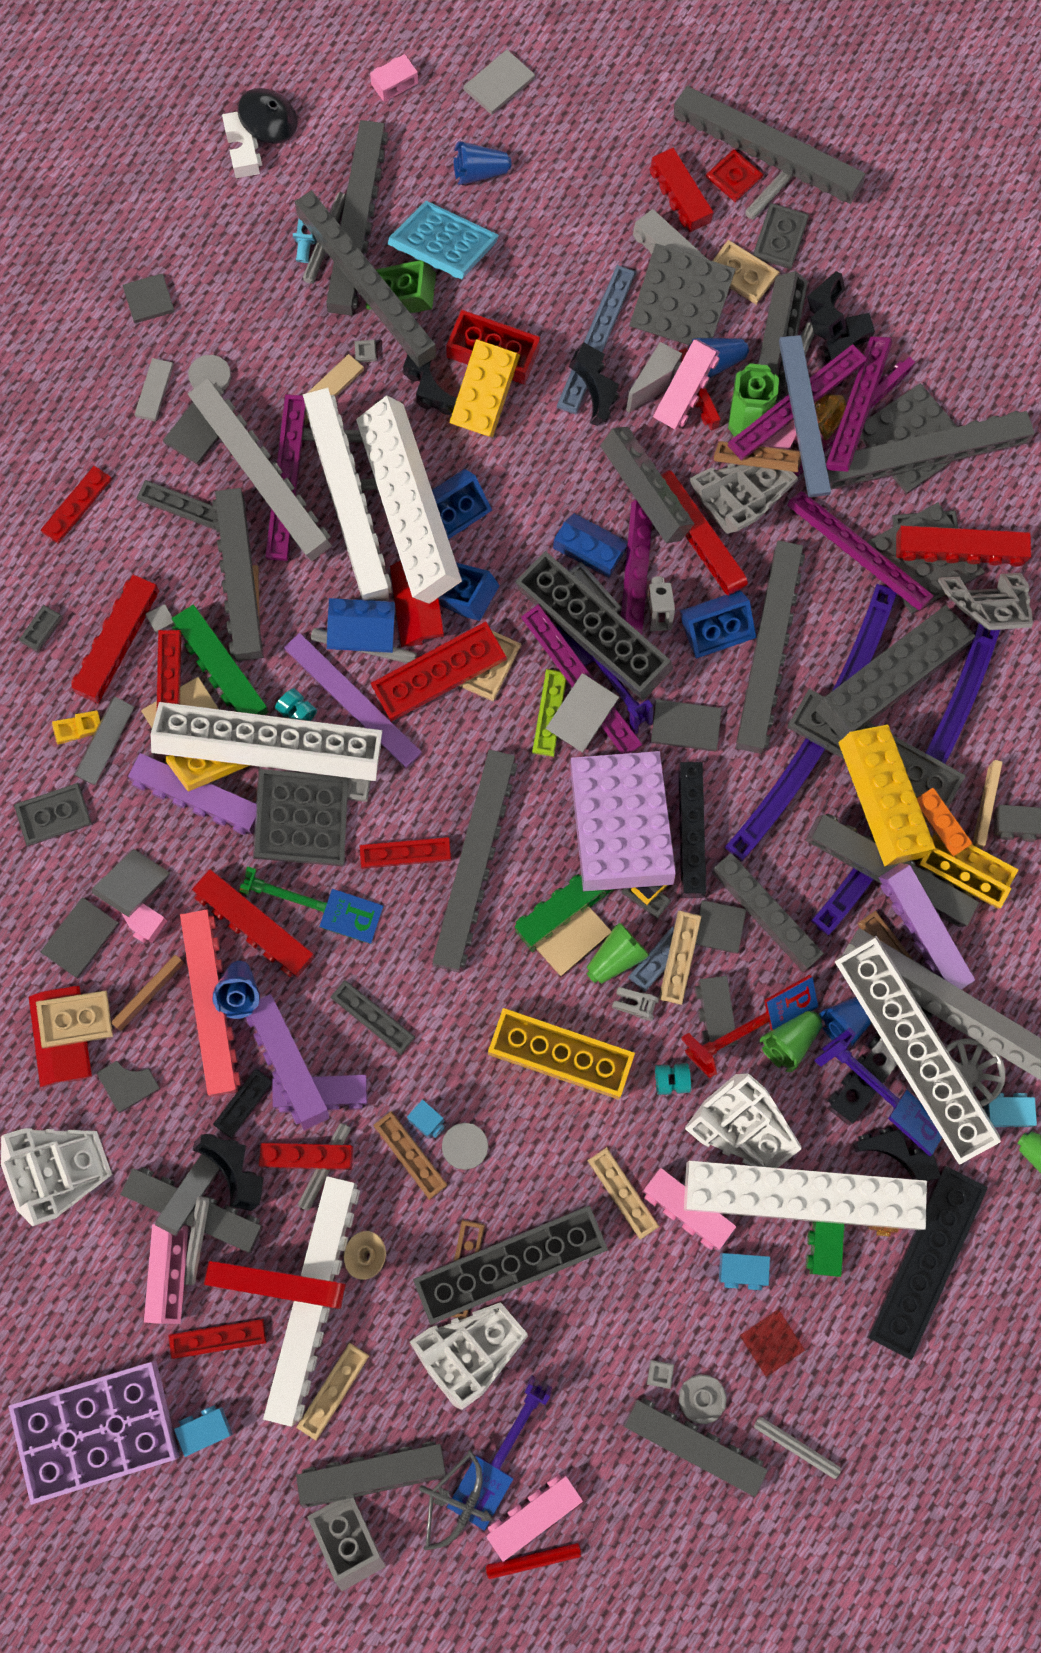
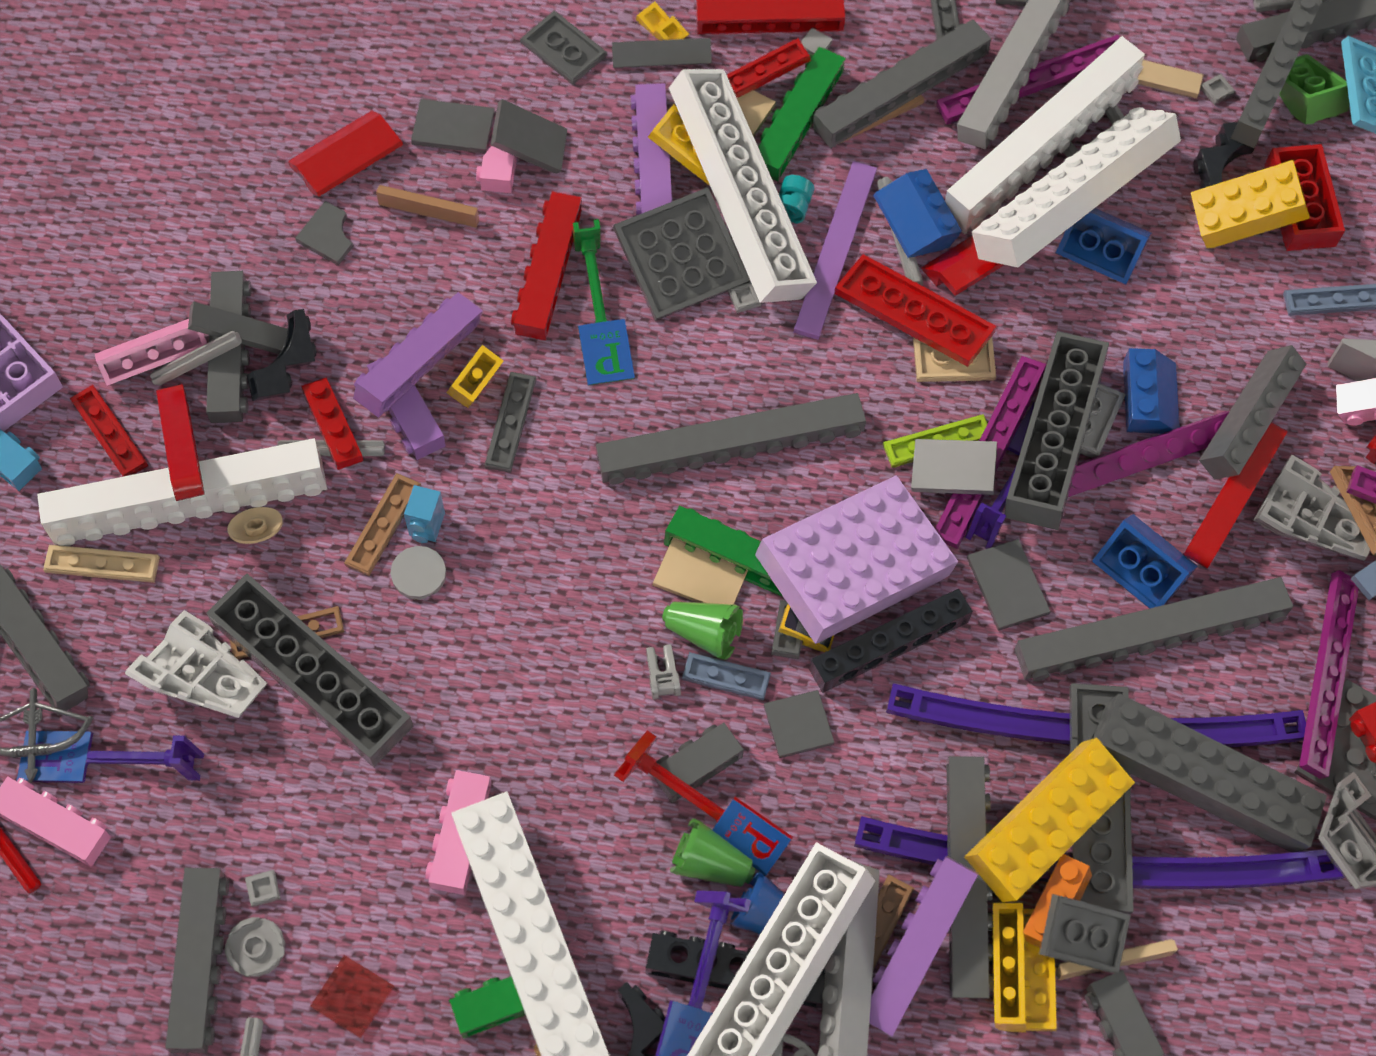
camera: 65 degrees right, 10 degrees down
(51, 1170) = (208, 202): white wedge -> none
(74, 1019) = (366, 153): tan tile -> none
(211, 1025) = (445, 264): coral brick -> none
(236, 991) = (467, 272): blue cone -> none
(243, 1103) = (356, 343): black tile -> none
(325, 1026) = (475, 376): none -> yellow brick
(405, 853) = (701, 370): red plate -> none
(471, 595) = (1020, 295): blue slope -> none
(561, 1053) = (565, 618): yellow brick -> none
(603, 391) = (1349, 295): black arch -> none
(623, 1193) = (445, 757): tan tile -> none
(660, 600) = (1132, 484): light grey torso -> none
(680, 957) = (739, 694): tan tile -> none
(681, 1078) = (597, 736): teal wheel -> none
(744, 1269) = (419, 924): dark azure brick -> none
(745, 1123) = (581, 847): white wedge -> none
(767, 912) = (841, 764): dark grey brick -> none
(973, 816) = (1085, 934): none -> dark grey tile

